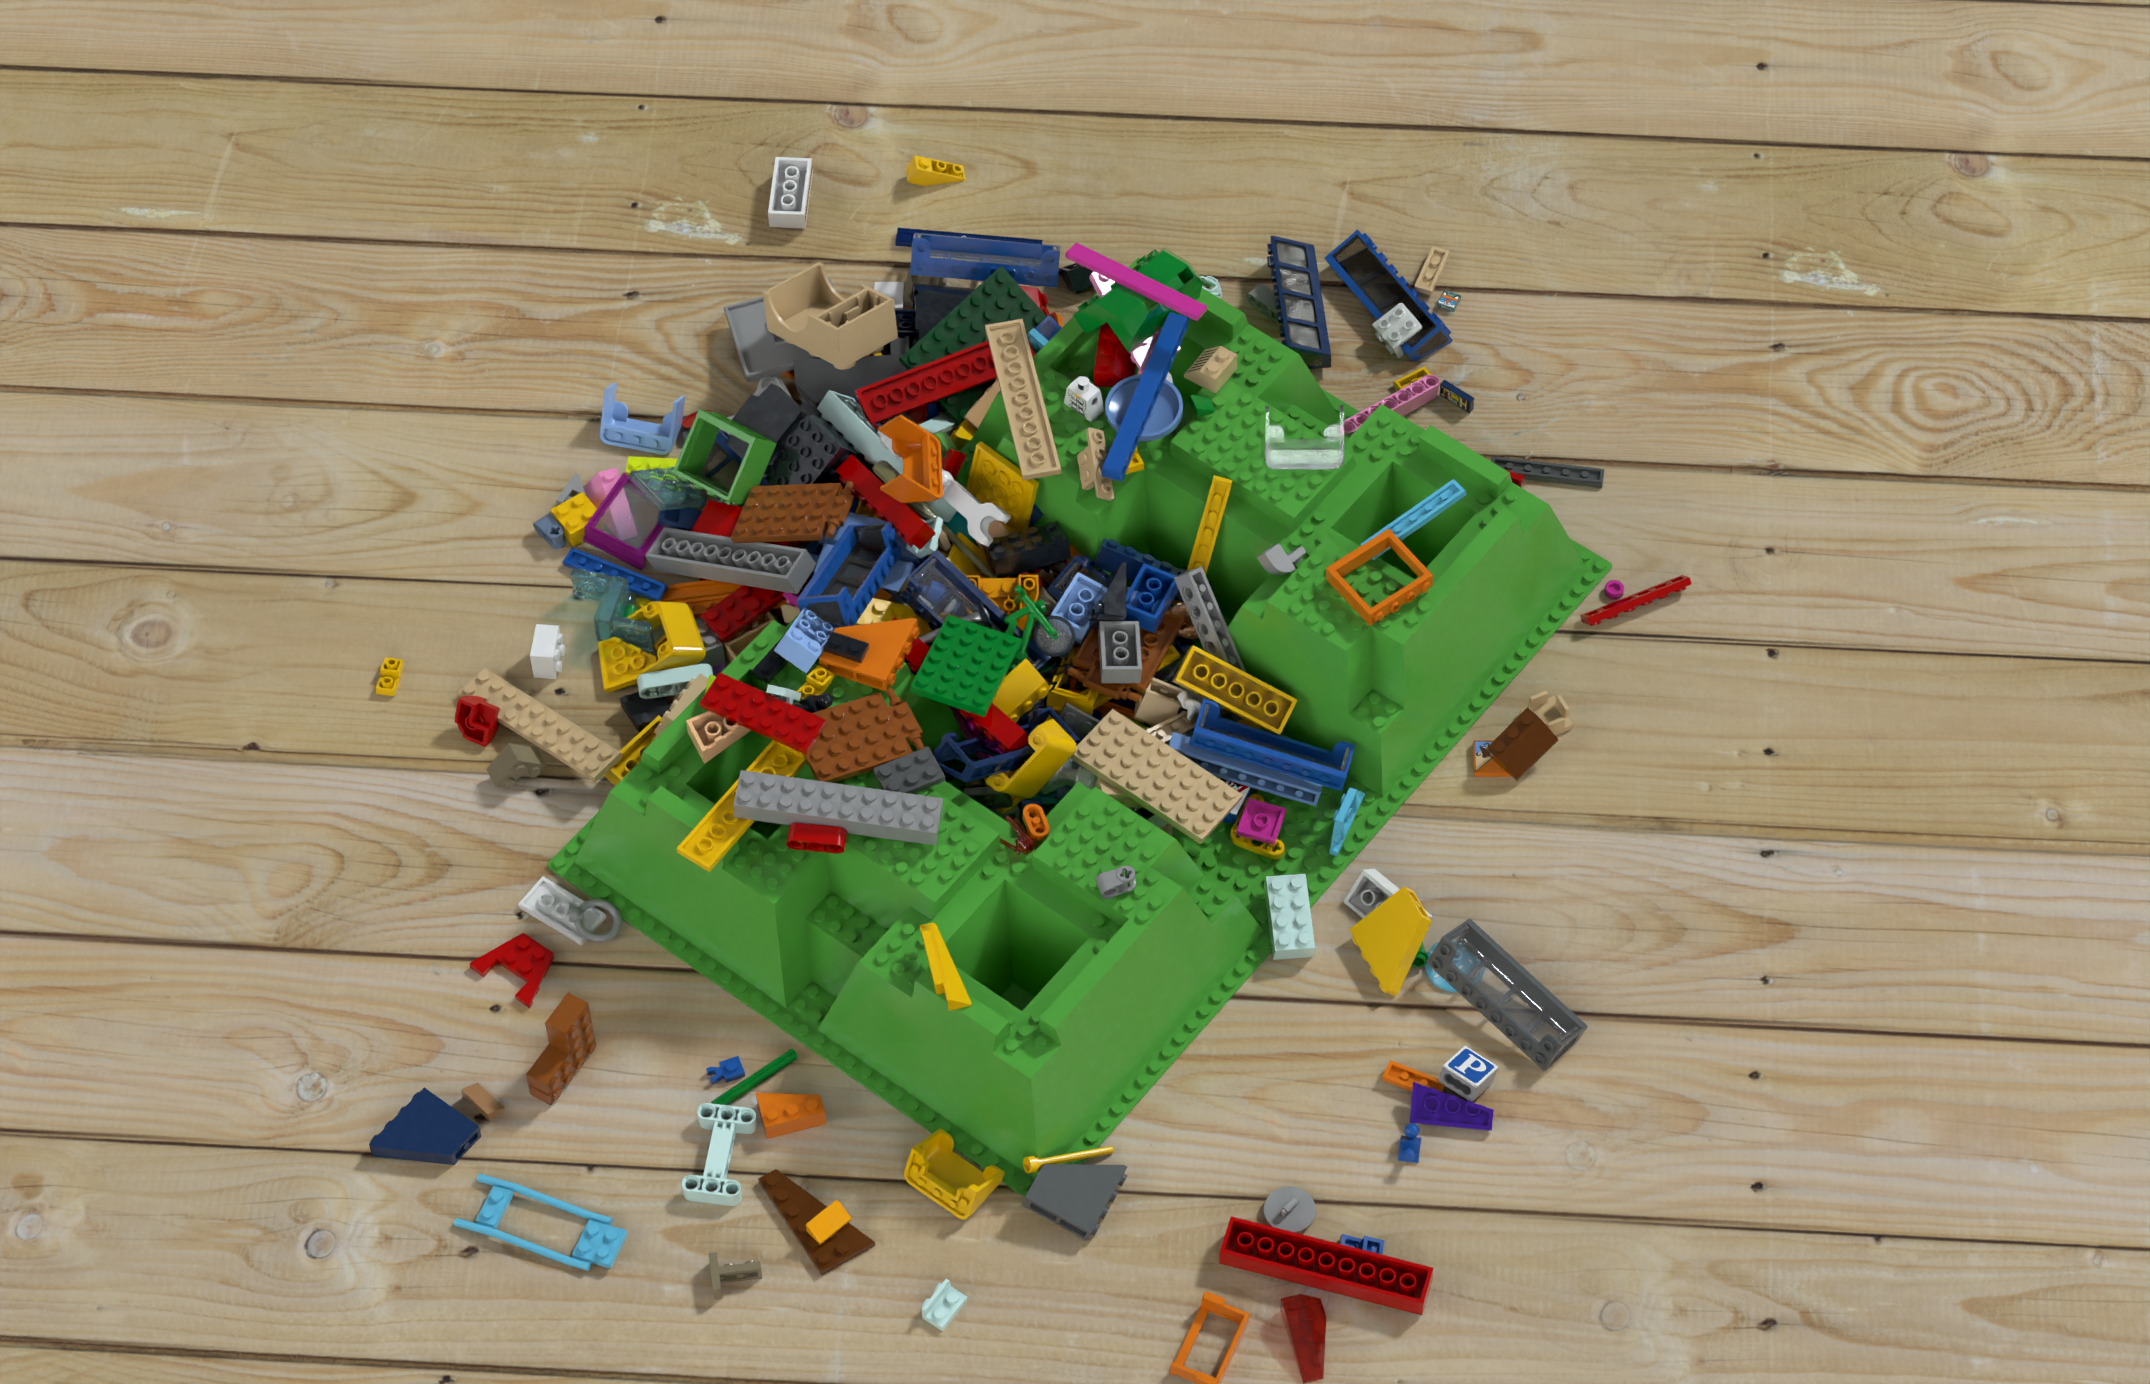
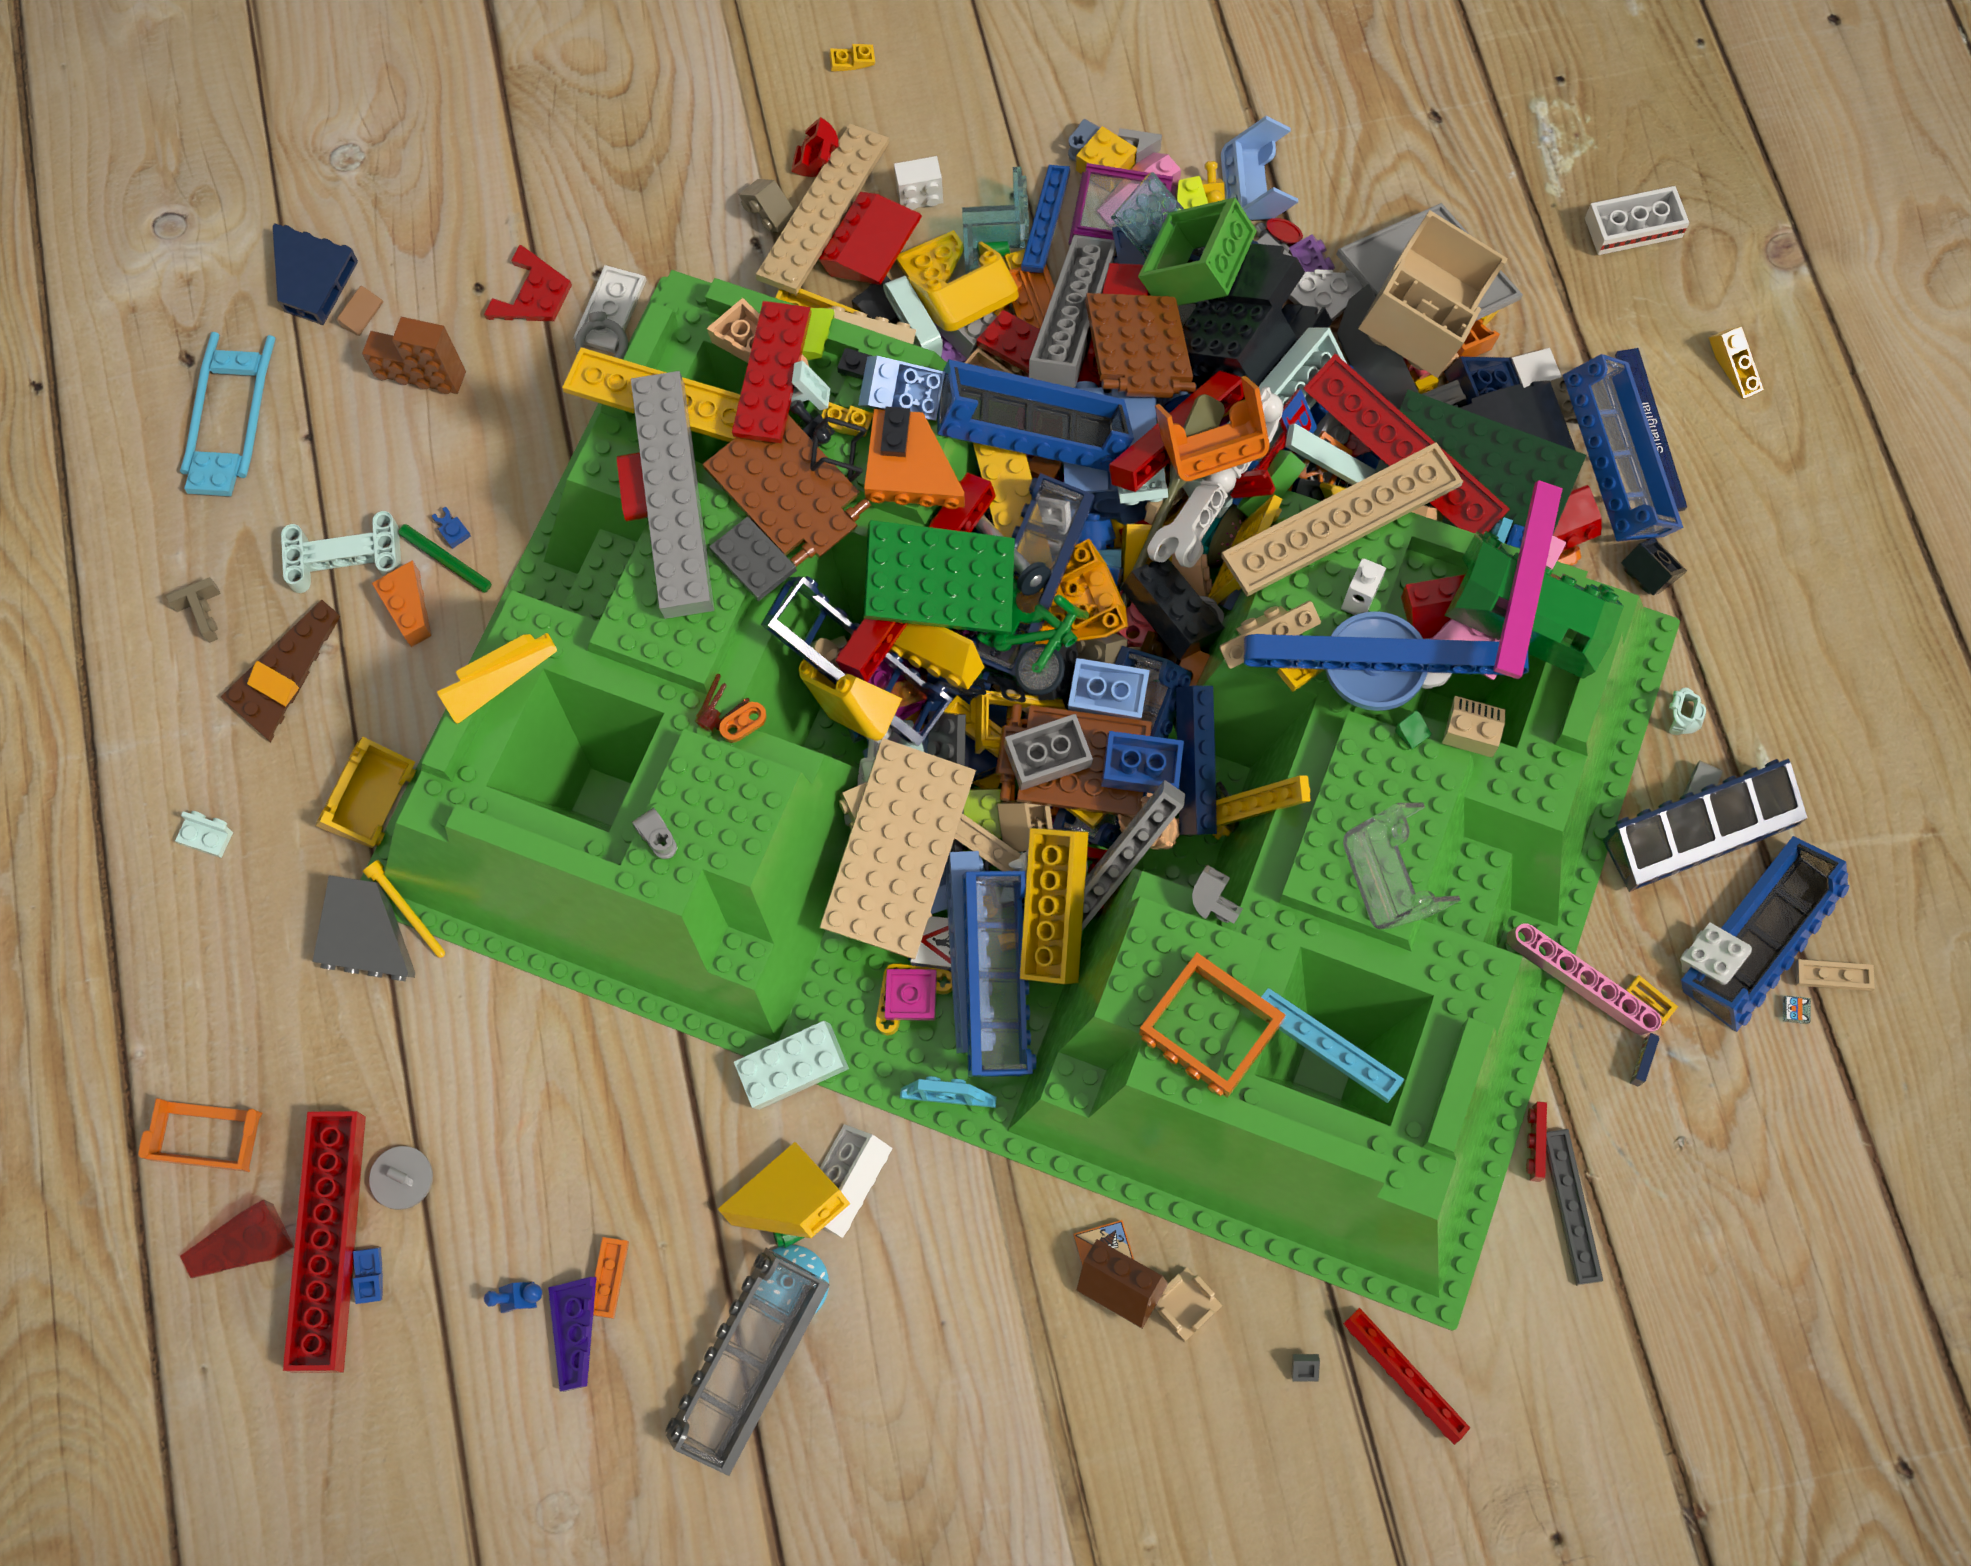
camera: 75 degrees right, 15 degrees up
(586, 696) = (869, 239): none -> red slope
(636, 451) = (1213, 187): none -> yellow piece
(728, 406) = (1311, 254): none -> medium lavender bracket
(867, 682) = (814, 465): none -> black piece
(1111, 599) = (1106, 716): black slope -> none
(1468, 1073) = (626, 1342): piece -> none
(1613, 656) = (1305, 1367): none -> dark grey plate
(1614, 589) = (1416, 1342): dark pink tile -> none

